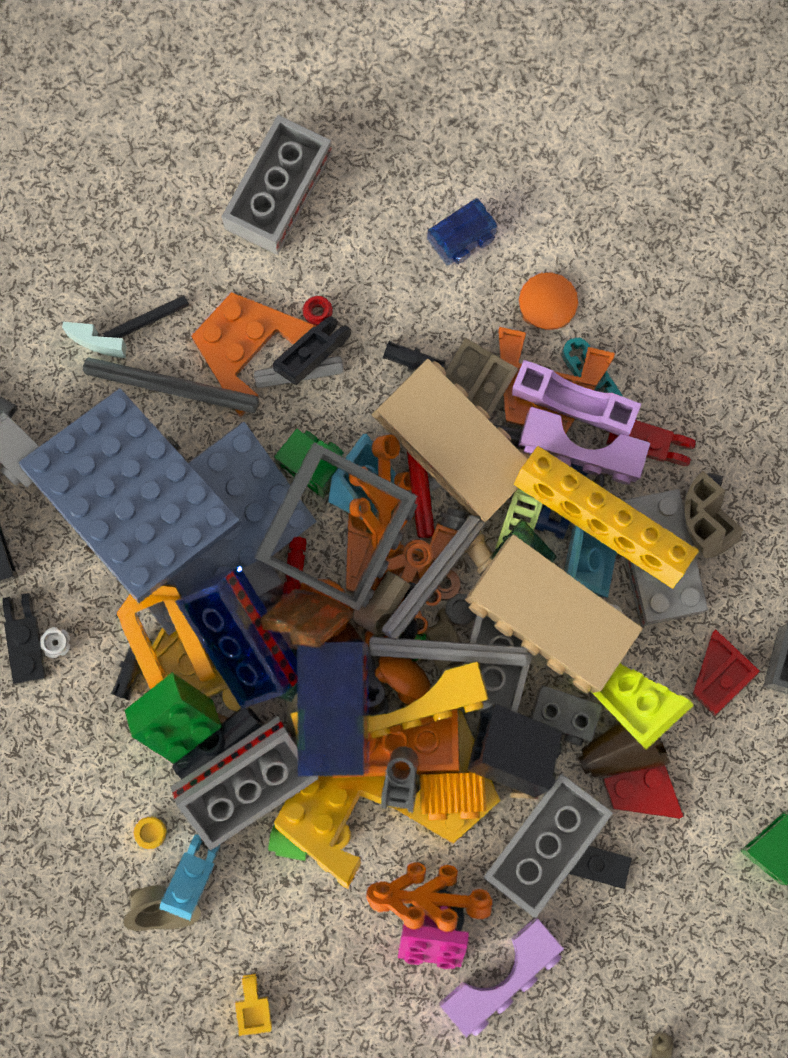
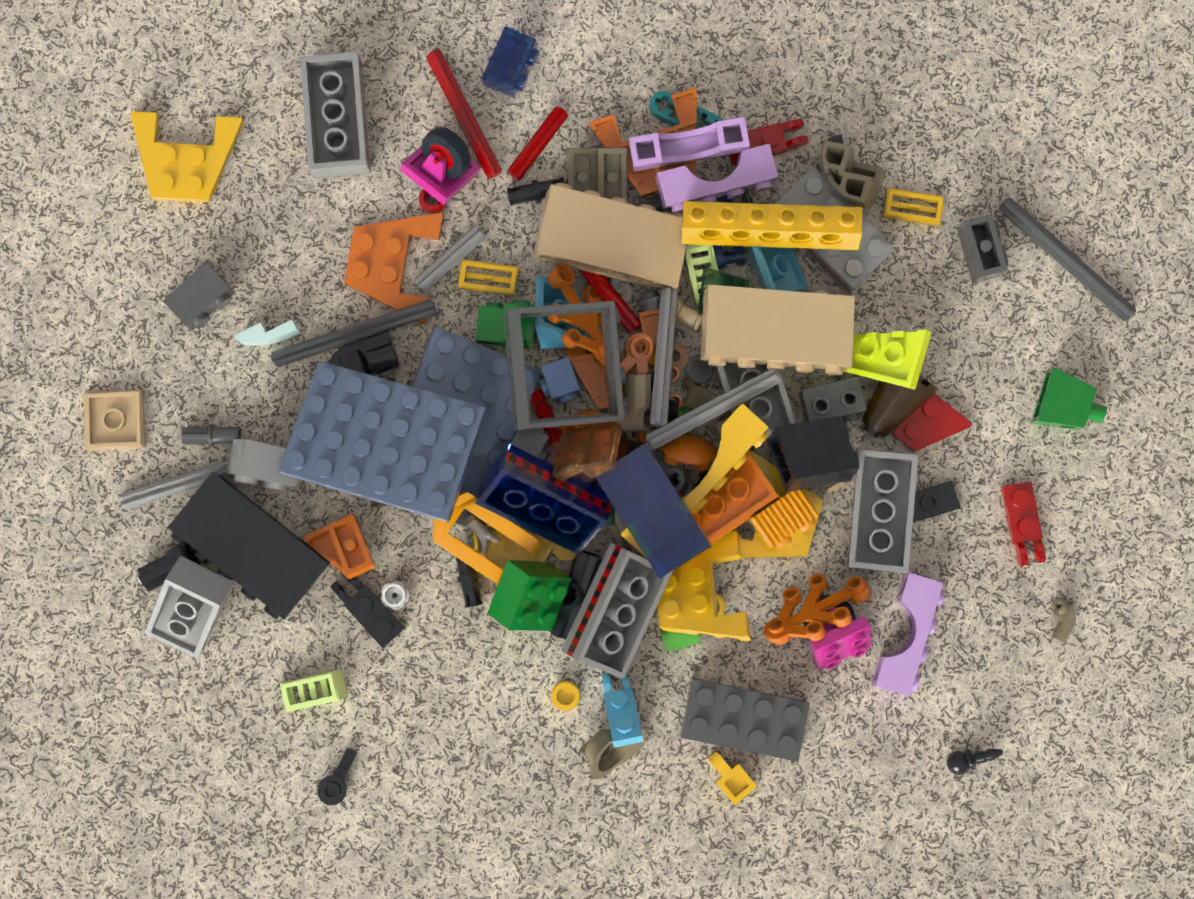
camera: 25 degrees left, 5 degrees up
(37, 568) = (343, 546): none -> orange wing
(55, 270) = (199, 297): none -> dark grey brick
(115, 152) = (180, 169): none -> yellow wing
(147, 318) = (299, 290): black bar -> none
(168, 632) = (482, 531): none -> light grey bar
(170, 413) = (368, 356): none -> black panel
(299, 960) = (744, 719): none -> dark grey brick
(311, 350) = (450, 235): black hinge -> none
(326, 541) = (559, 381): none -> medium blue brick
(342, 284) = (441, 164): none -> plate
(342, 426) = (486, 288): none -> yellow tile
(392, 253) = (464, 113): none -> red axle
(400, 785) = (741, 535): dark grey piece -> none
(442, 318) = (537, 143): none -> red axle
(548, 301) = (614, 76): orange dish -> none
(676, 938) = (1023, 520): none -> red hinge
(722, 674) = (935, 293): red wing -> none
(743, 592) = (887, 213): none -> yellow tile

